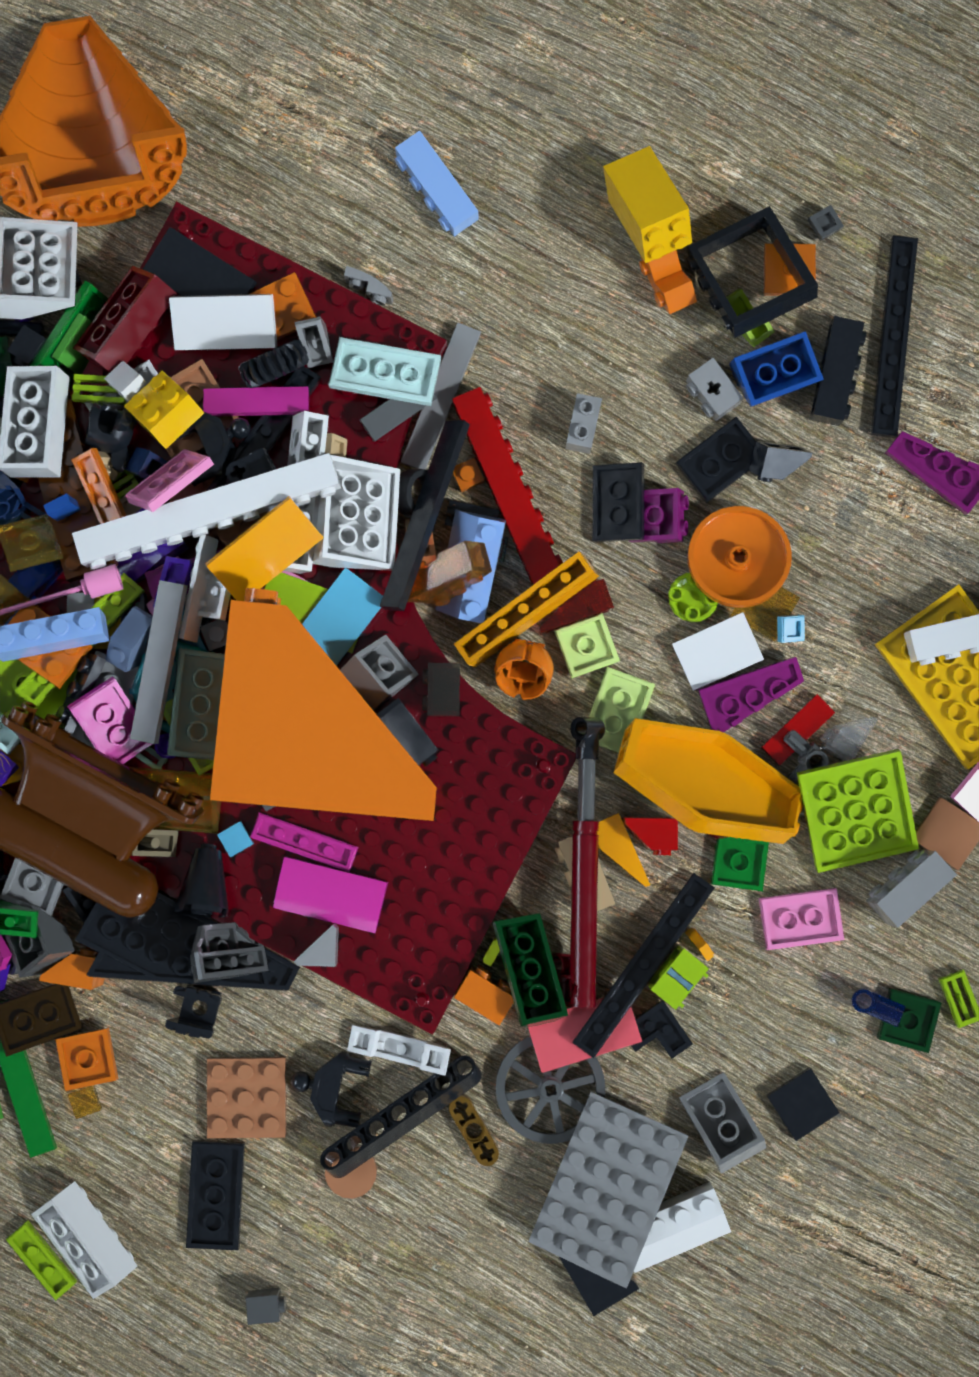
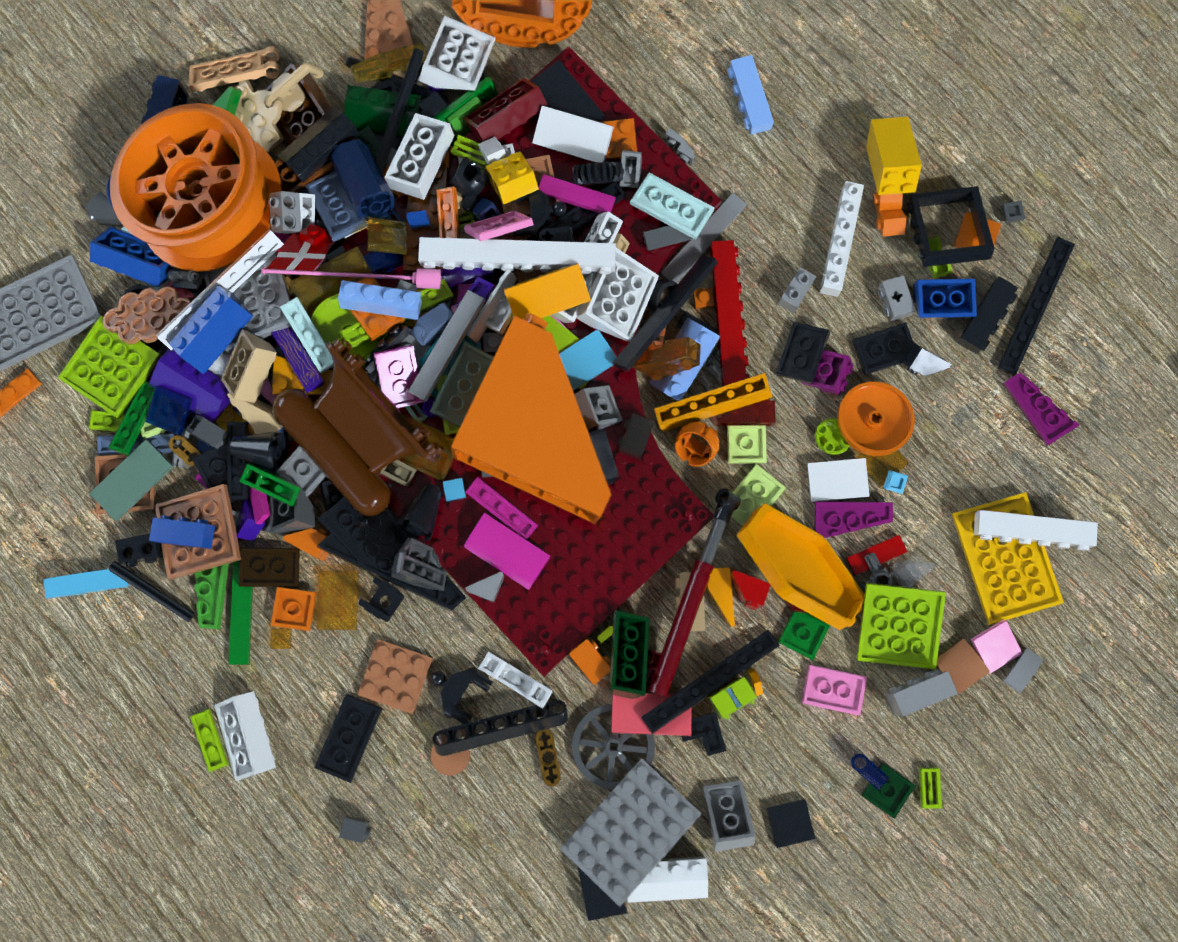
camera: 15 degrees right, 5 degrees down
(139, 1028) = (337, 600): none -> clear yellow plate
(618, 335) = (841, 239): none -> white brick

